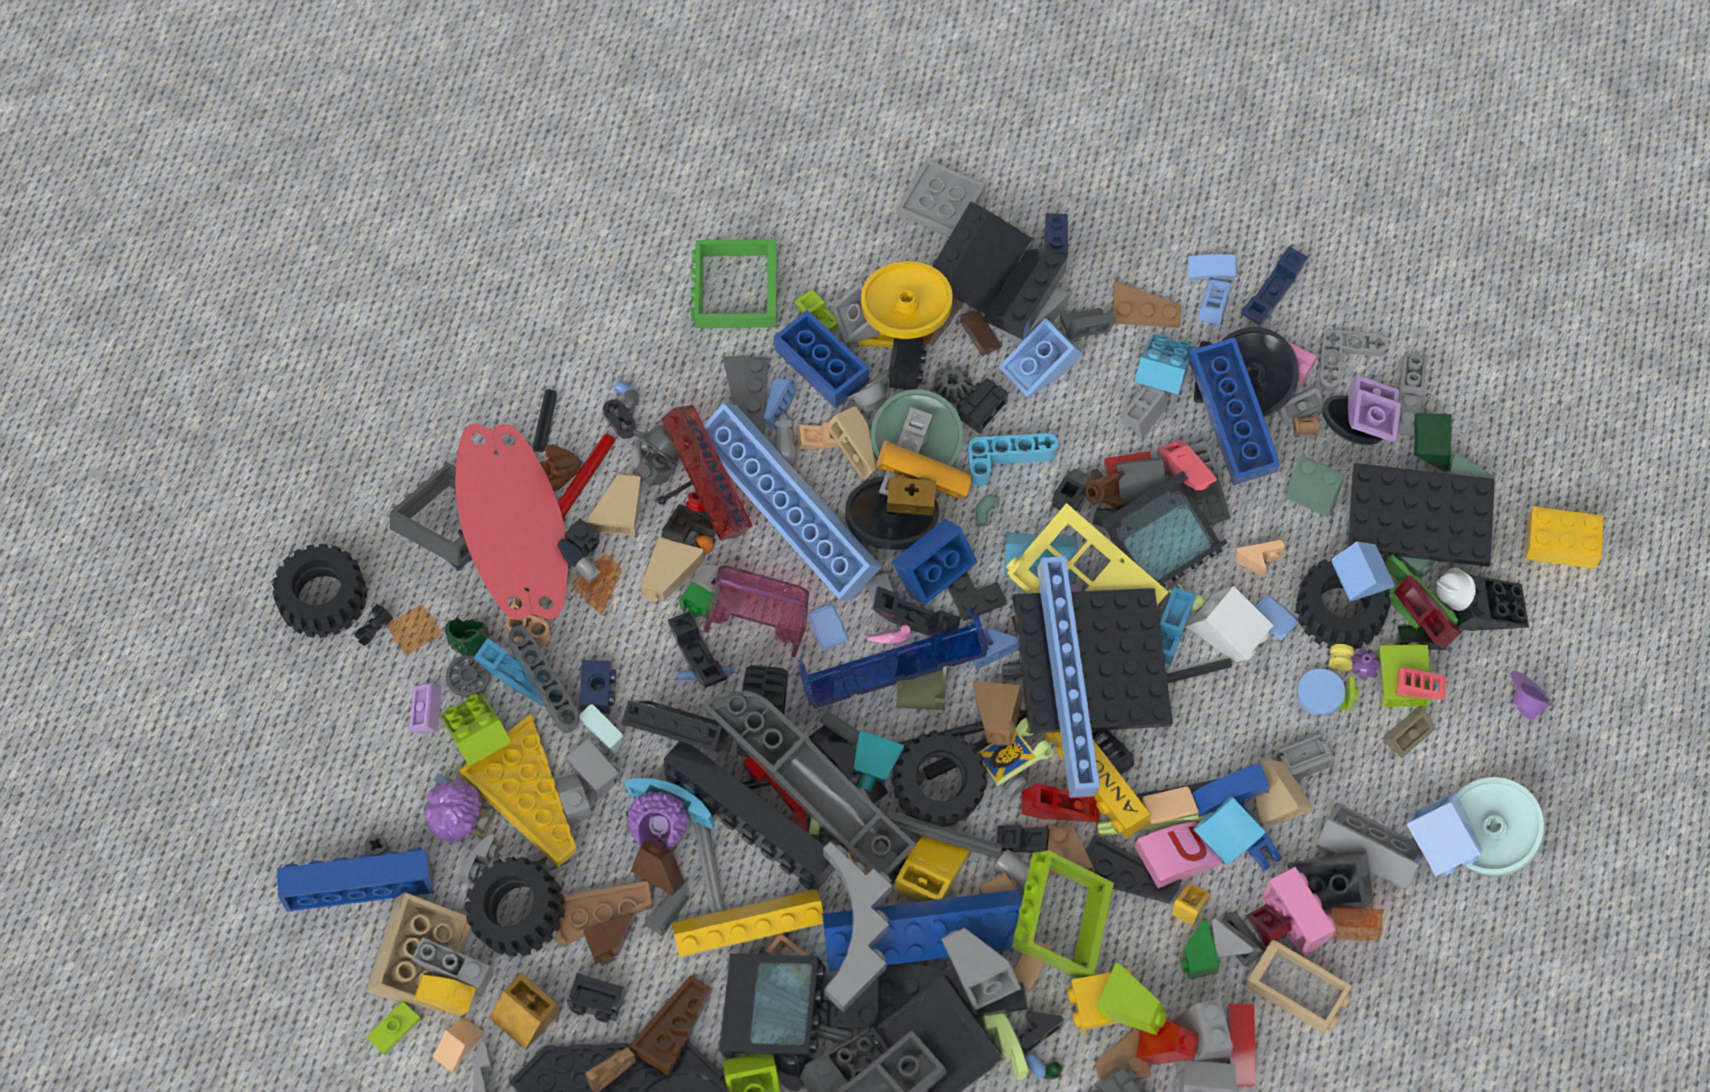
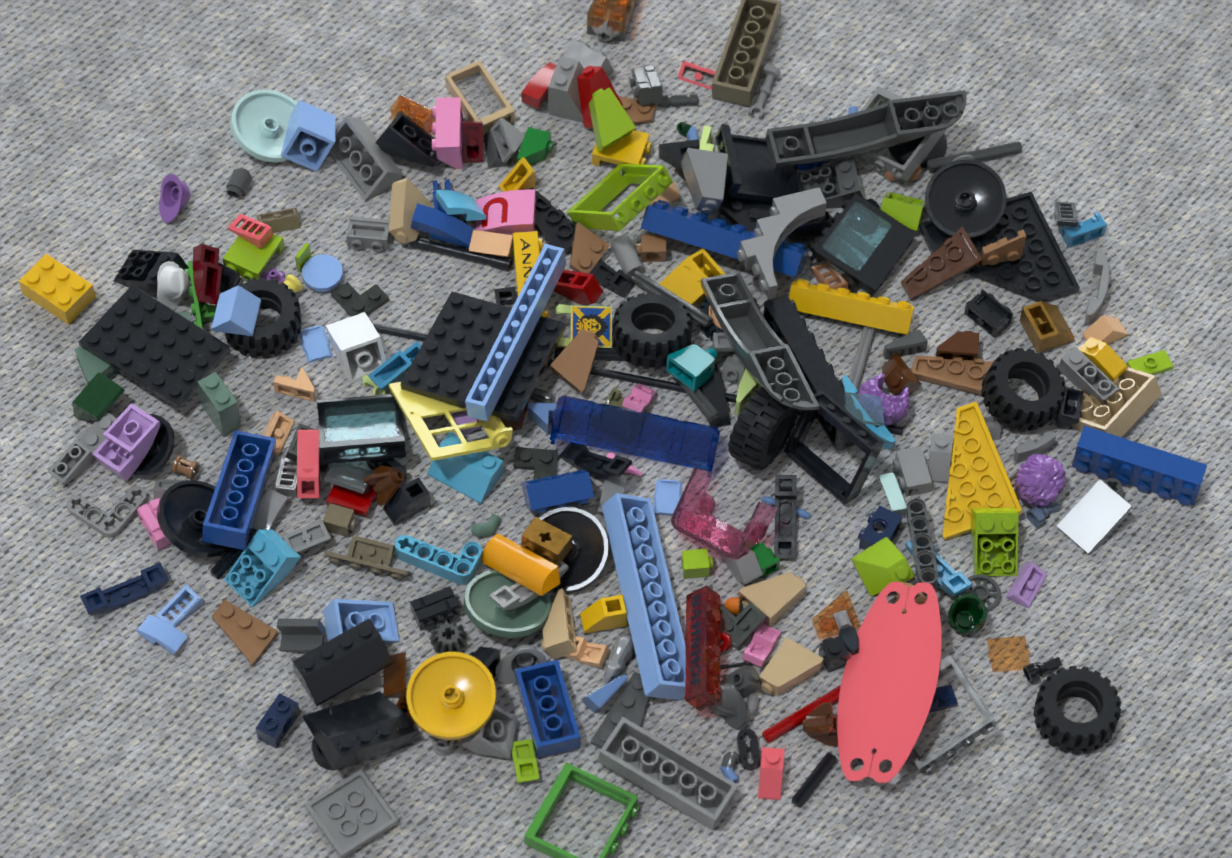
camera: 155 degrees left, 5 degrees down
(382, 805) = (1094, 516): none -> tile
(456, 923) = (1071, 407): none -> black slope
(572, 643) = (881, 565): none -> lime slope
(587, 405) = (771, 773): none -> coral slope
(656, 517) = (761, 645): none -> bright pink slope
(666, 772) = (865, 408): none -> clear light blue piece
(678, 349) = (667, 773): none -> light grey brick
(762, 562) = (696, 563): none -> lime brick
(820, 470) = (604, 614): none -> yellow slope
(913, 709) = (639, 398): none -> bright pink slope
(1075, 422) = (369, 553): none -> dark tan bracket
(1125, 442) = (339, 520): none -> dark tan brick
(1198, 422) = (269, 509): none -> light grey slope
(1247, 504) = (279, 428): none -> light nougat slope
(1262, 678) = (355, 303): none -> pearl dark grey plate
(1478, 749) = (238, 183): none -> dark grey brick

